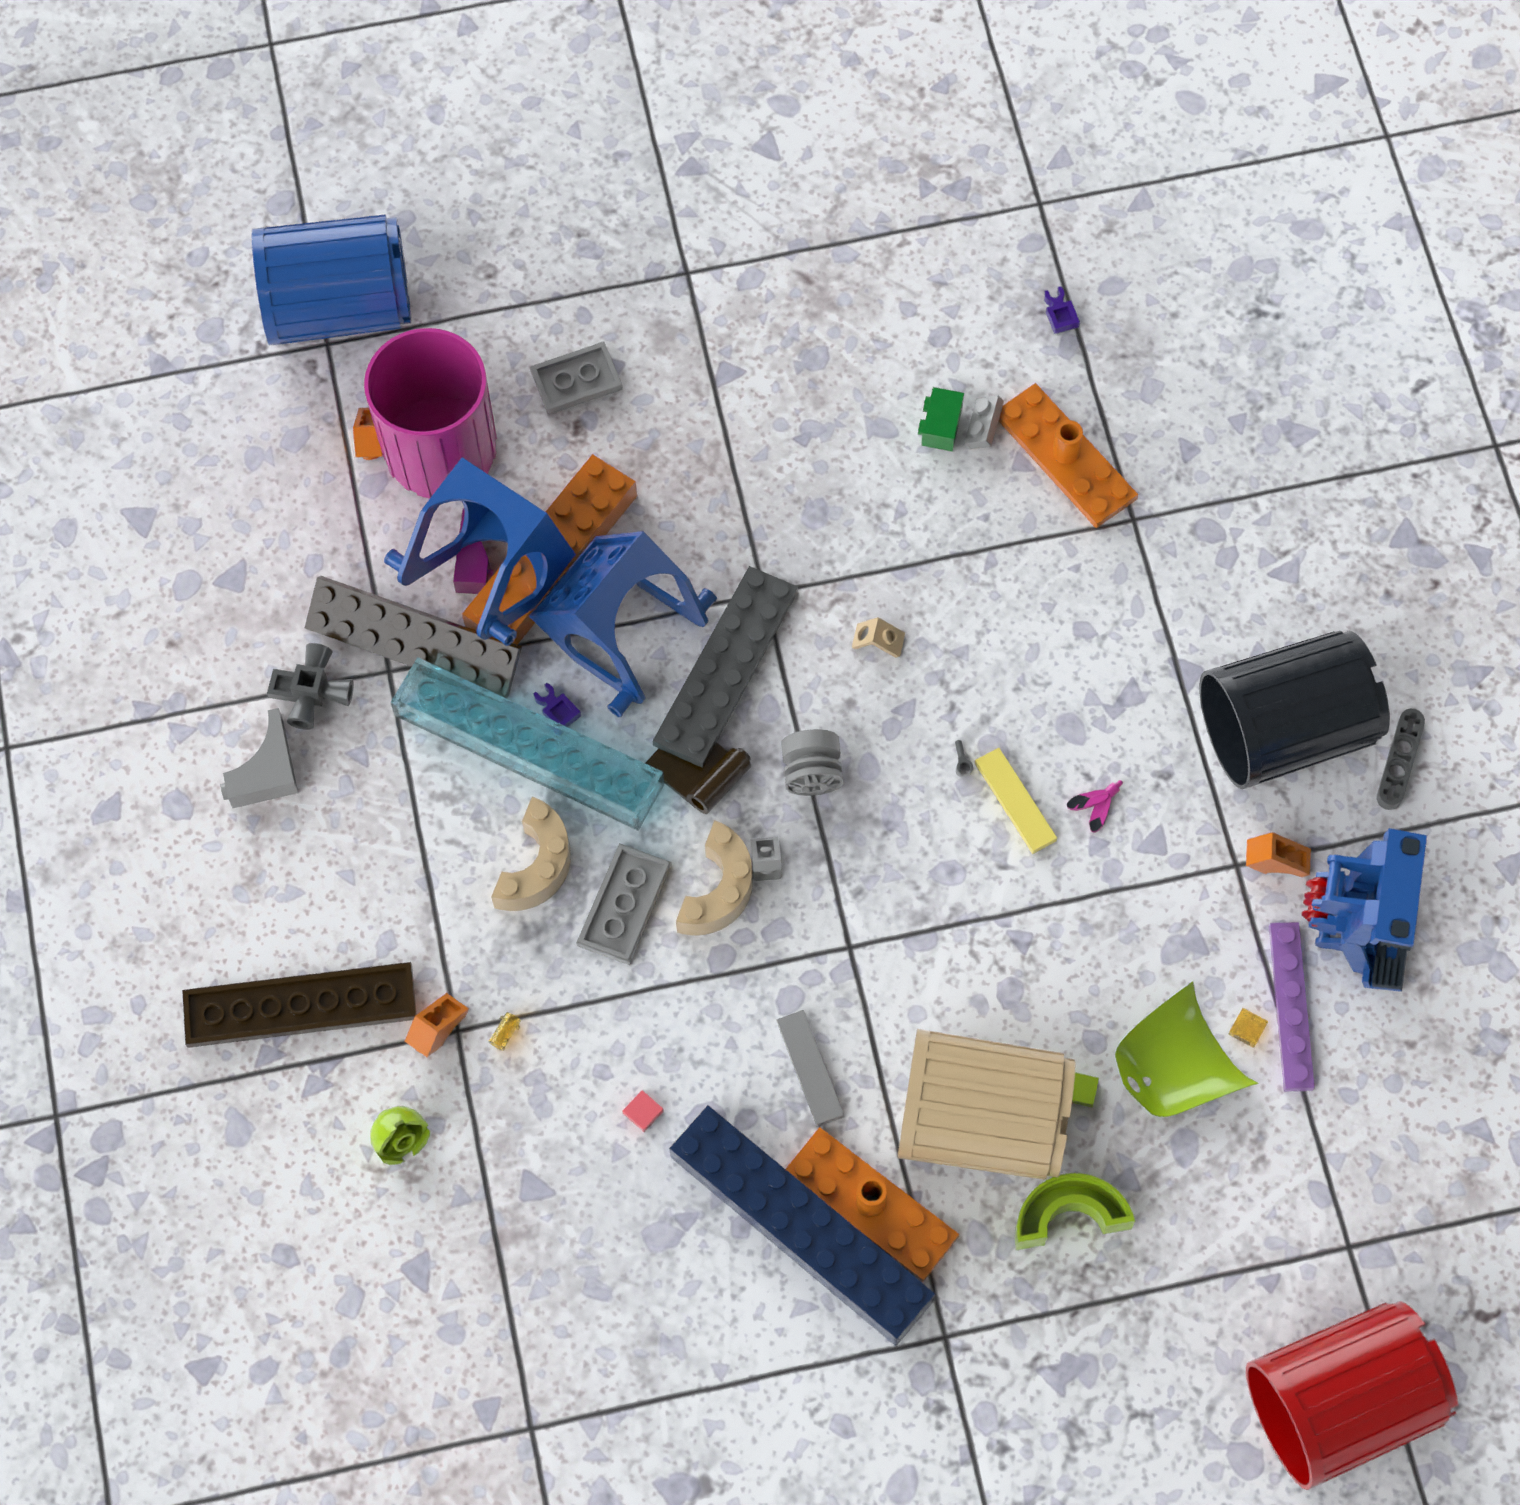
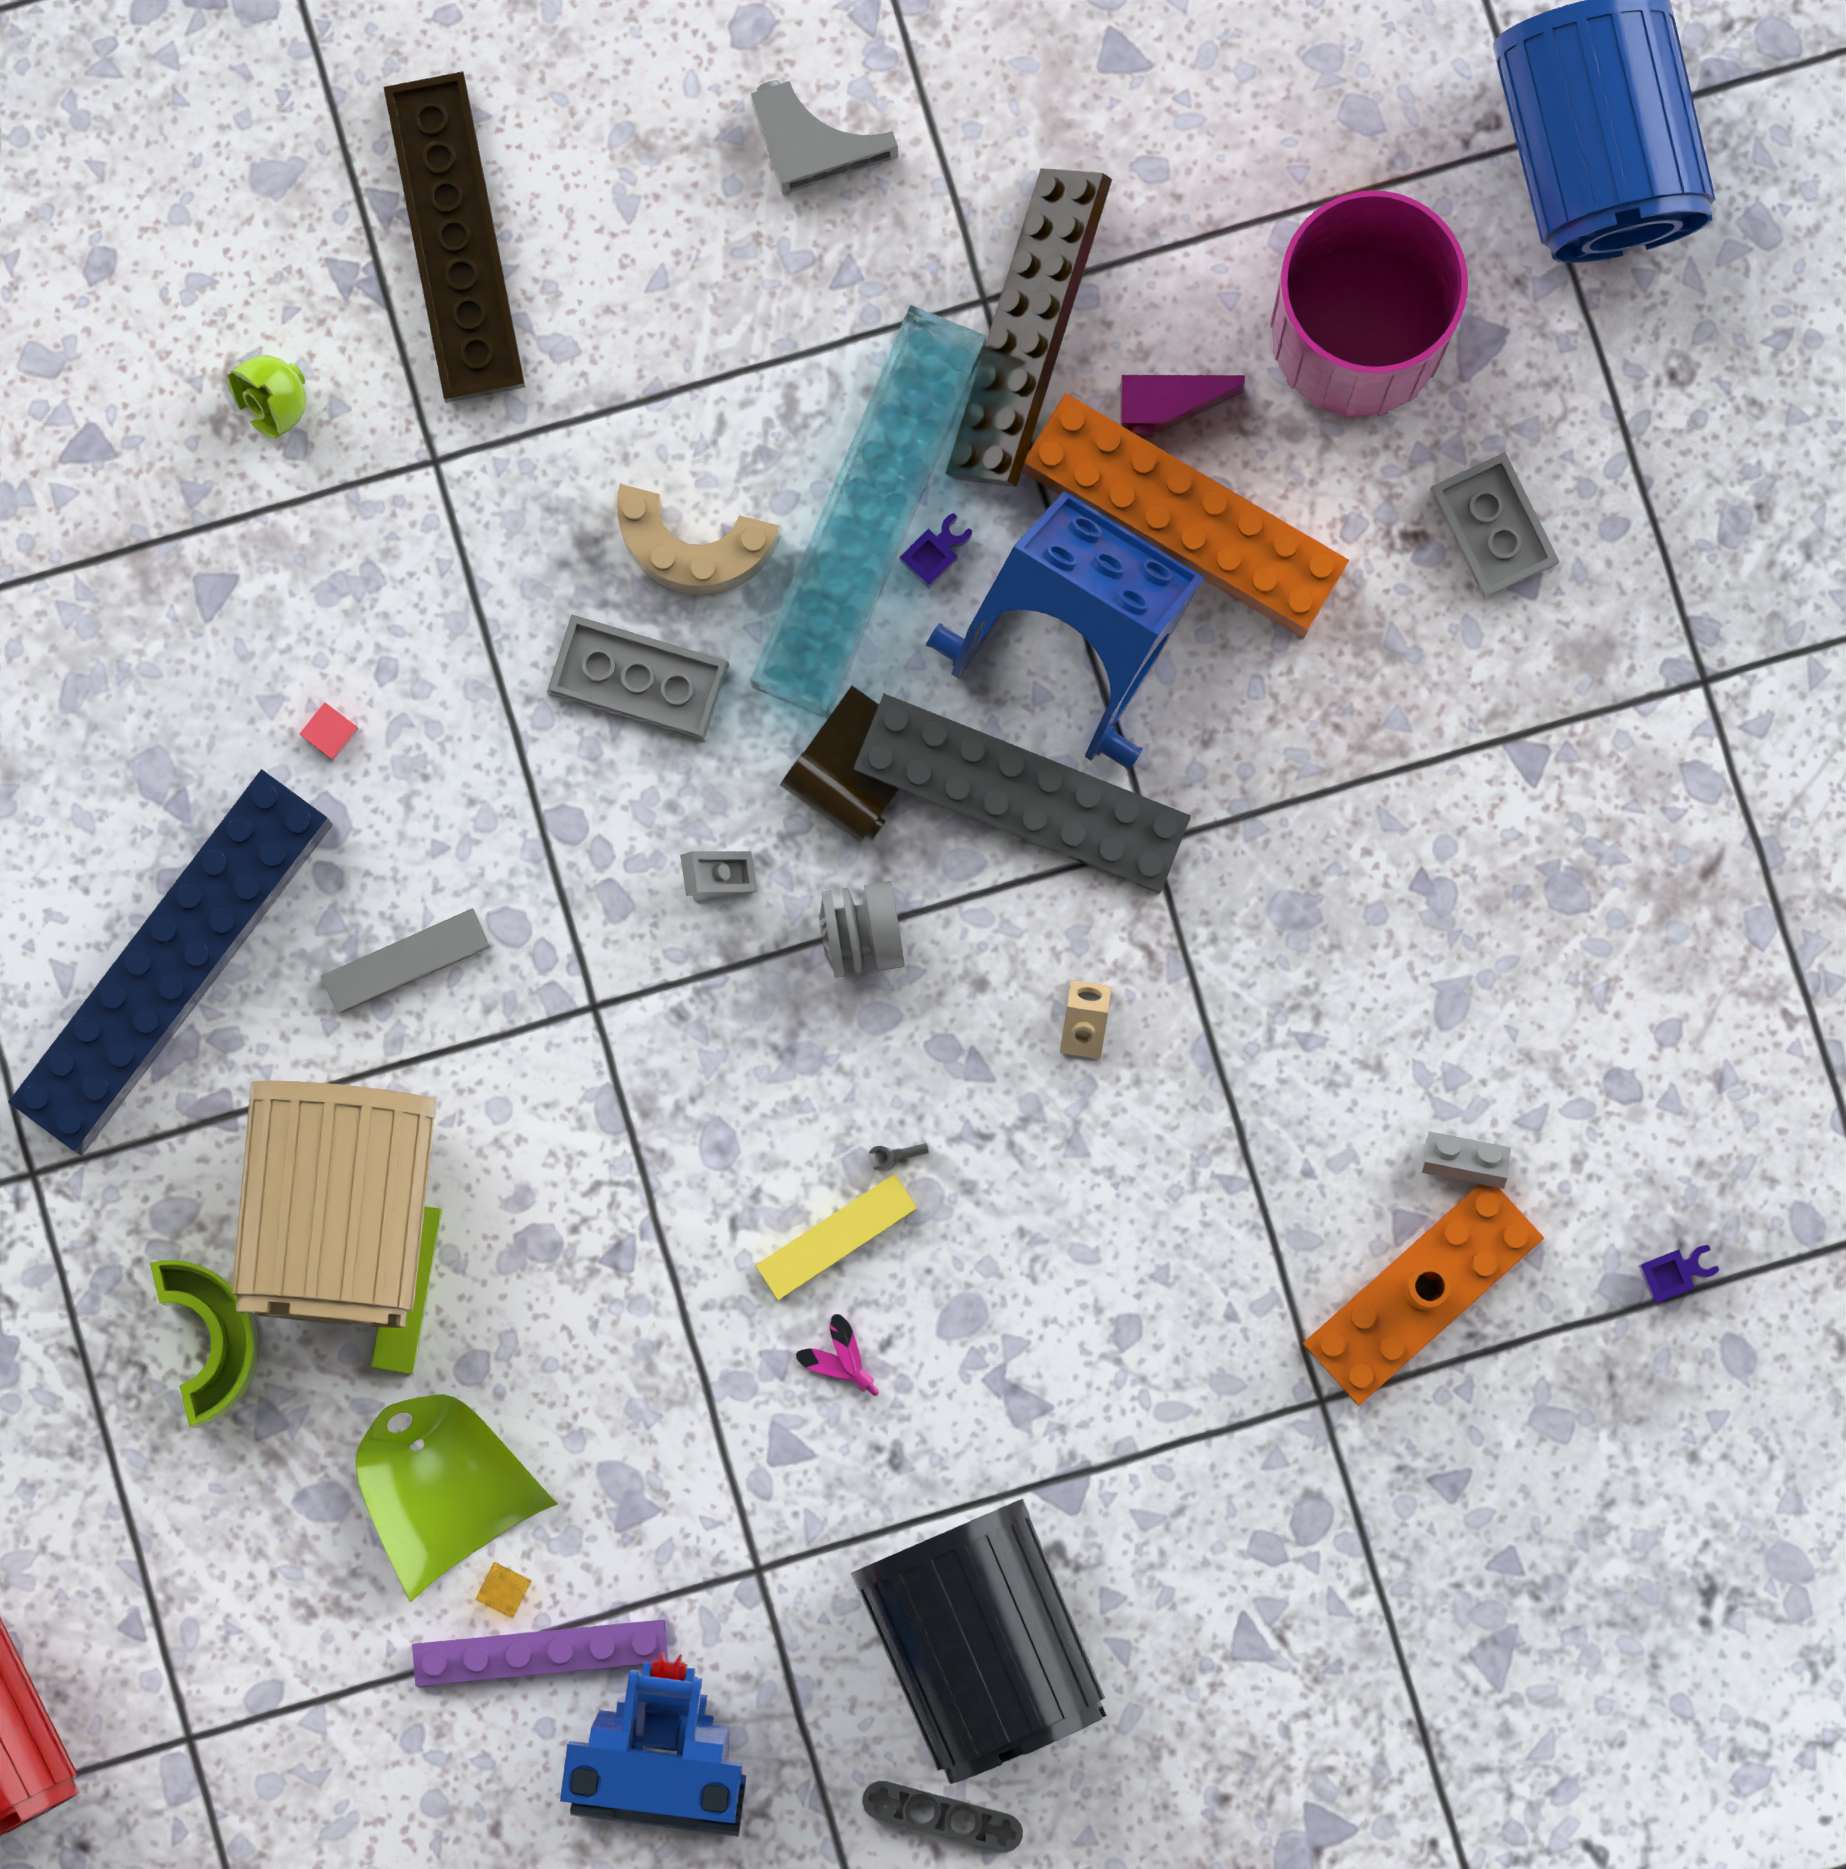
camera: 85 degrees right, 15 degrees up
(309, 686) = (940, 187): dark grey brick -> none
(435, 1024) = (434, 429): orange arch -> none
(496, 515) = (1176, 450): blue piece -> none
(504, 1031) = (433, 527): clear yellow pin -> none
(725, 903) = (670, 832): tan brick -> none
(892, 1222) = (187, 1101): orange plate -> none
(942, 419) = (1462, 1092): green brick -> none
(1277, 855) = (766, 1629): orange arch -> none

